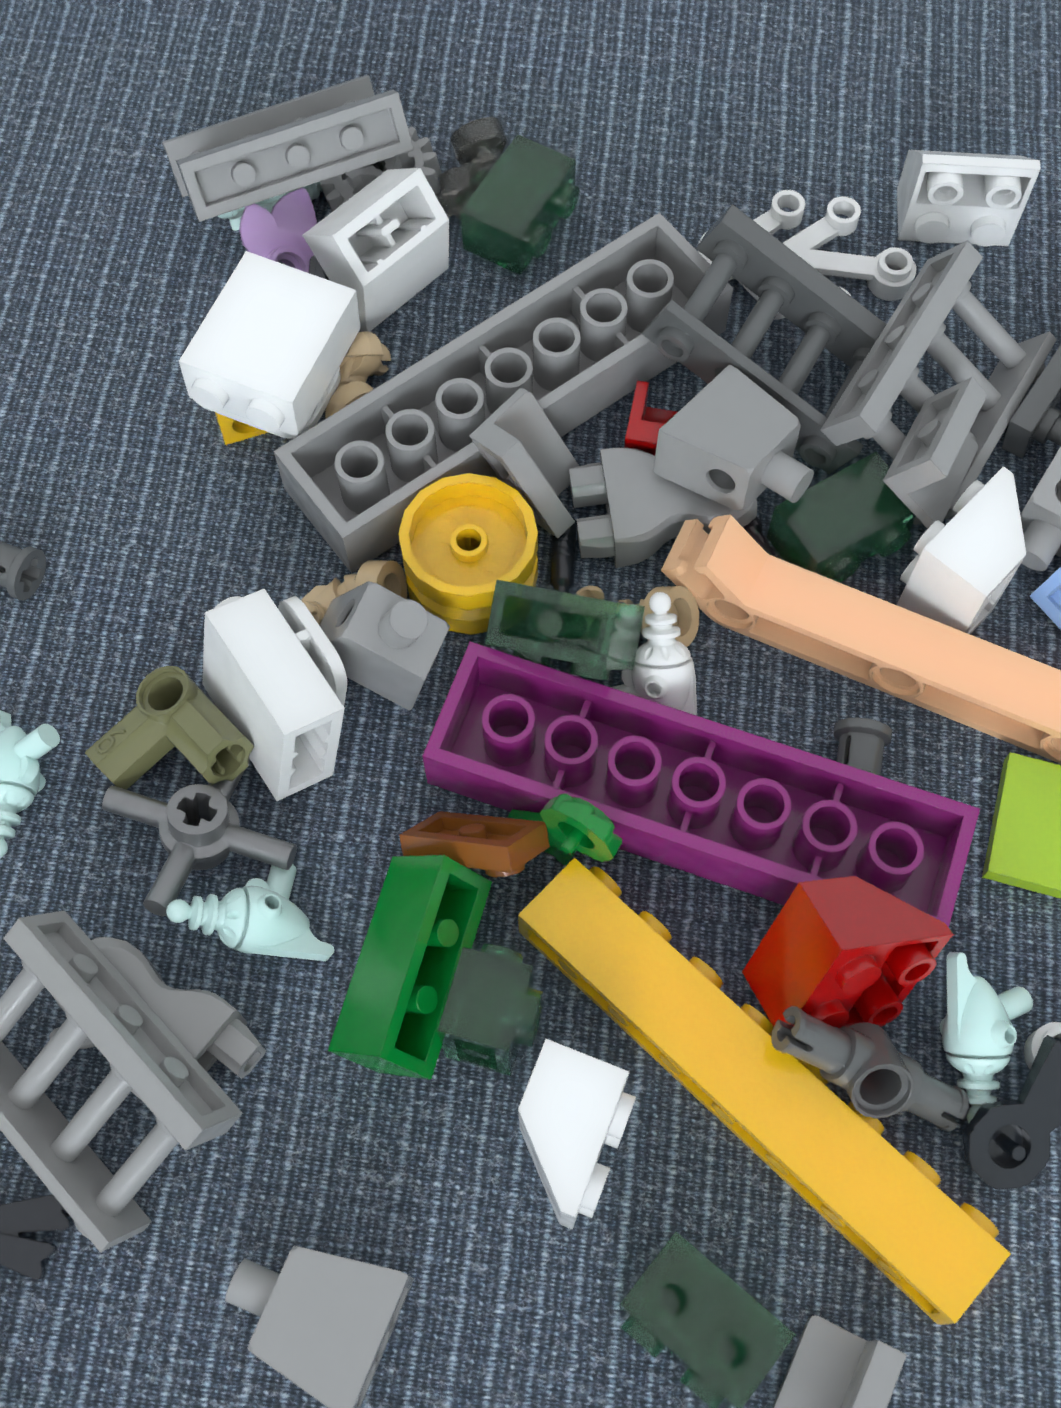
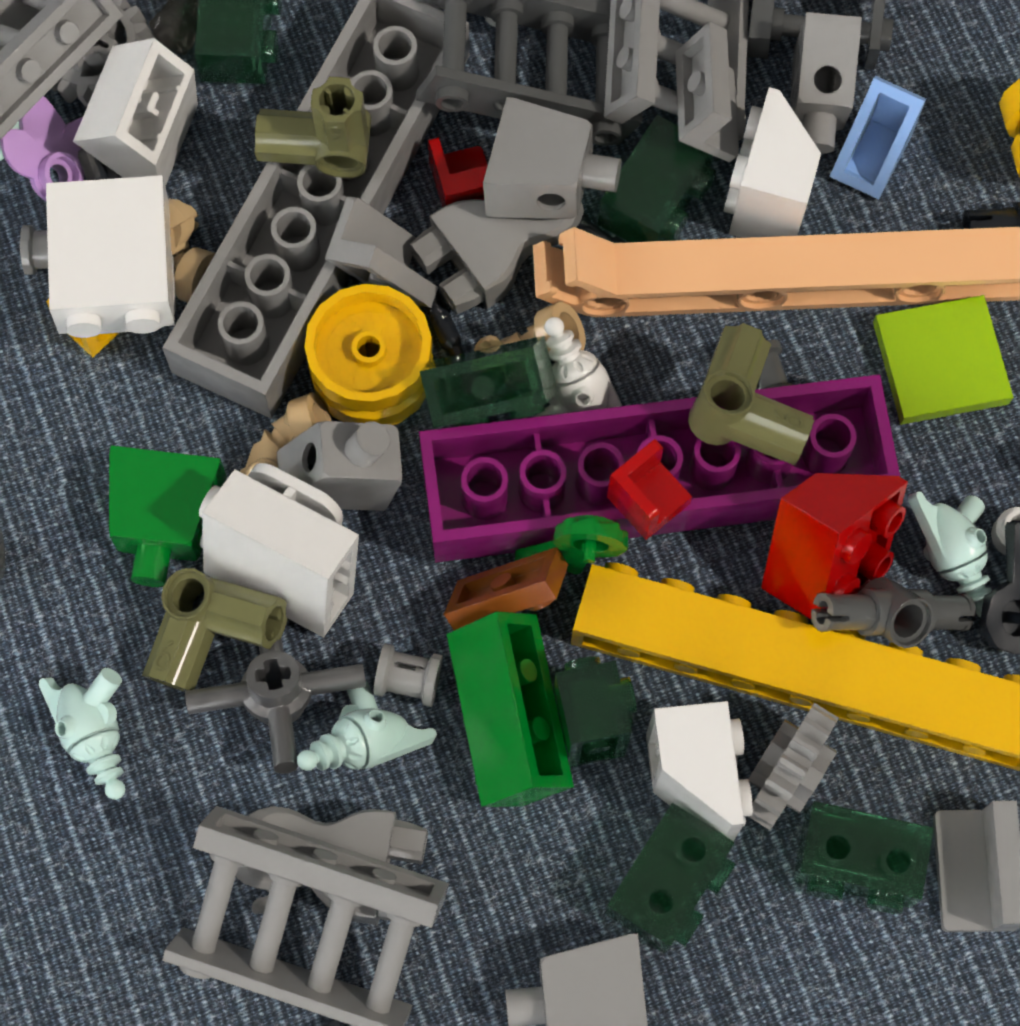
camera: 30 degrees left, 5 degrees up
(177, 590) = (157, 507): none -> green torso
(335, 879) = (407, 675): none -> light grey bush
(481, 1234) = (670, 879): none -> clear green brick
(533, 322) = (329, 137): none -> olive piece
(664, 806) = (647, 491): none -> red panel
(671, 1180) = (792, 766): none -> light grey gear
(813, 783) = (748, 415): none -> olive piece

